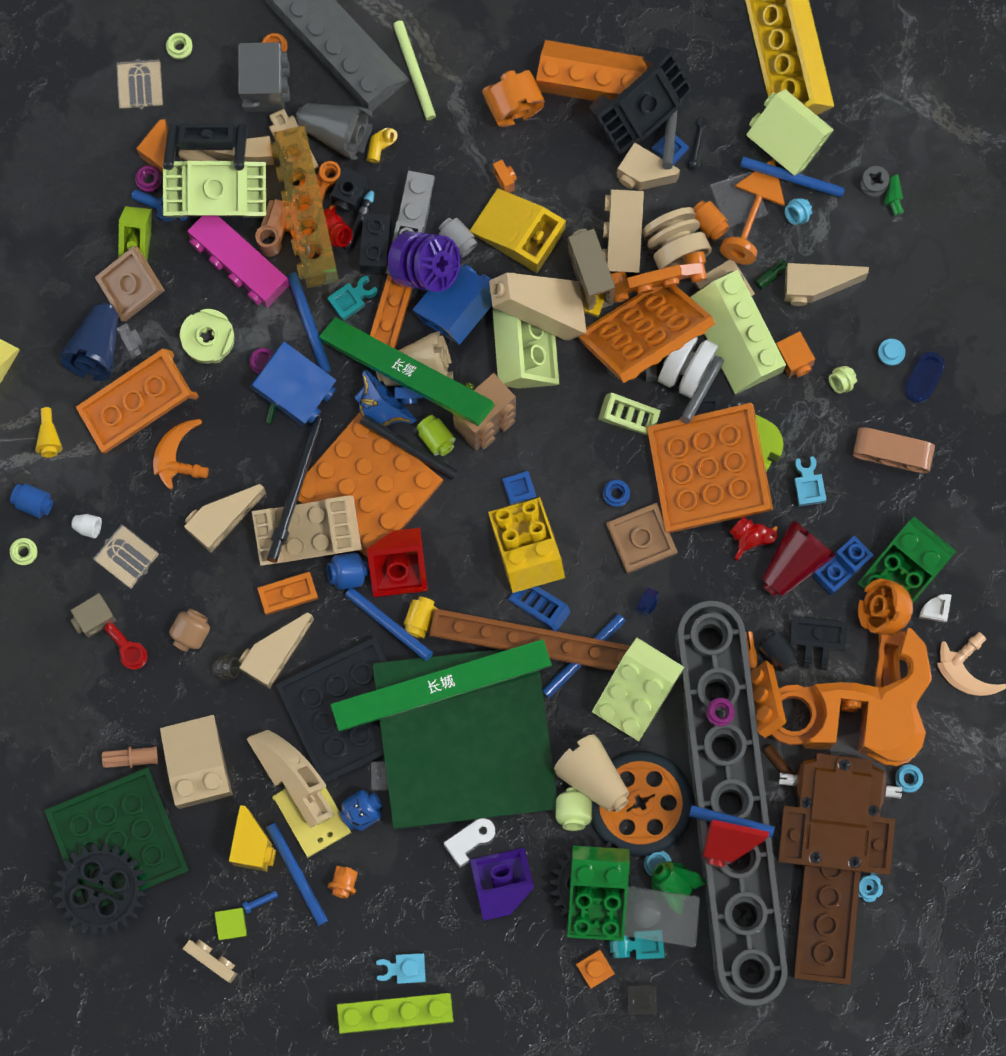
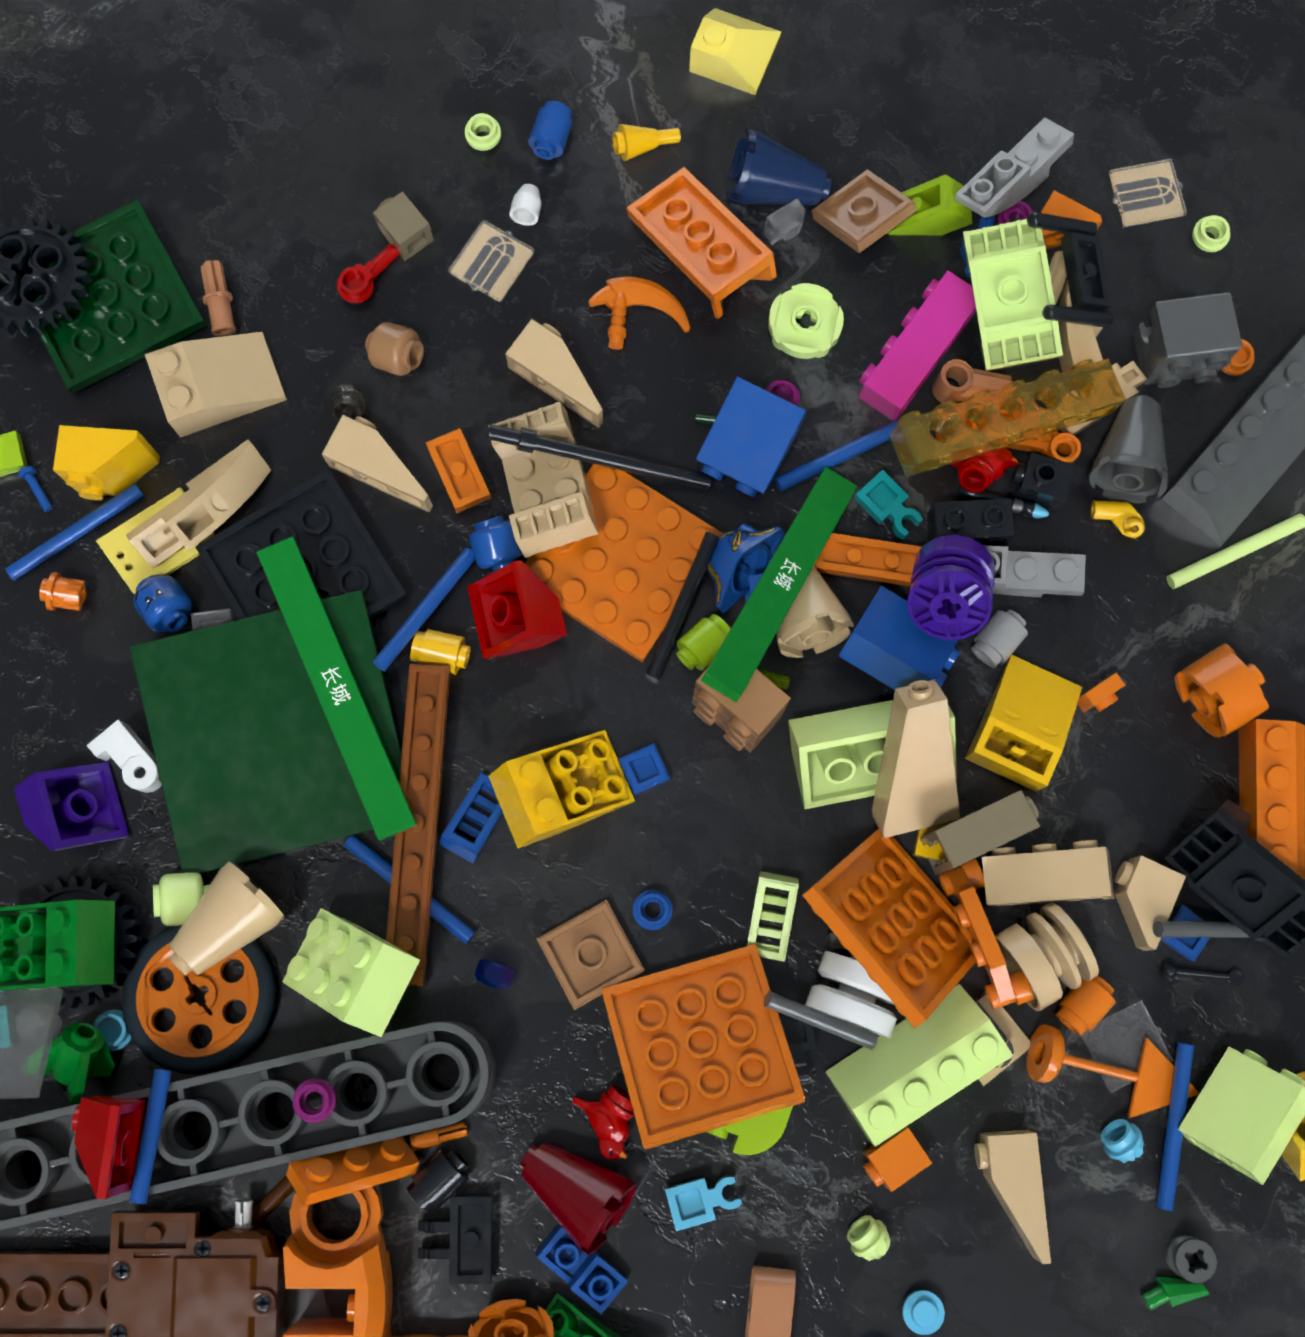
camera: 80 degrees right, 0 degrees up
(116, 172) = (1016, 173): none -> light grey slope
(770, 275) = (1017, 1108): dark green pin -> none

